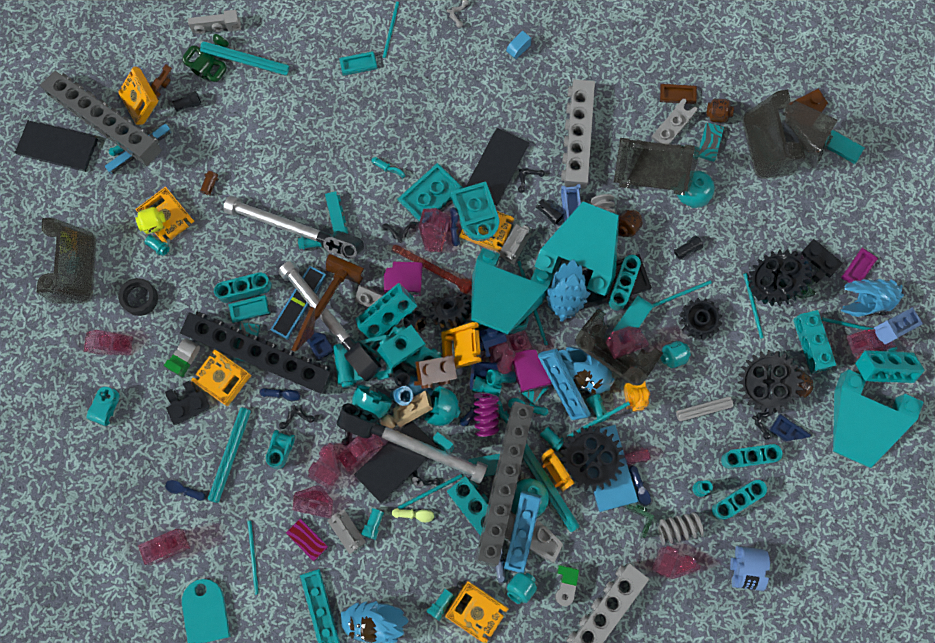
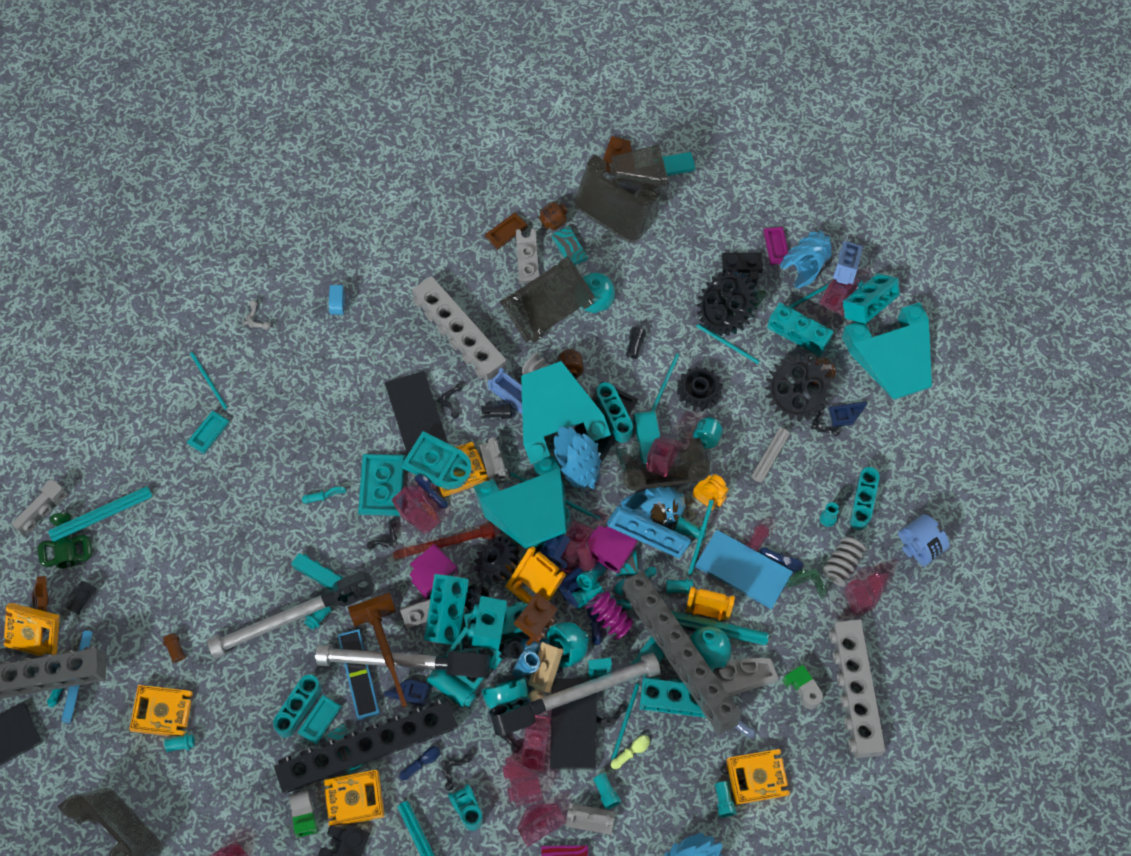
camera: 45 degrees left, 10 degrees down
(130, 285) = (198, 787): black tyre -> none
(150, 220) = (156, 723): neon yellow head -> none
(521, 588) = (773, 723): teal head -> none
(522, 532) = (732, 676): dark azure tile -> none
(605, 470) = (746, 570): black gear -> none
(759, 452) = (845, 450): teal beam -> none

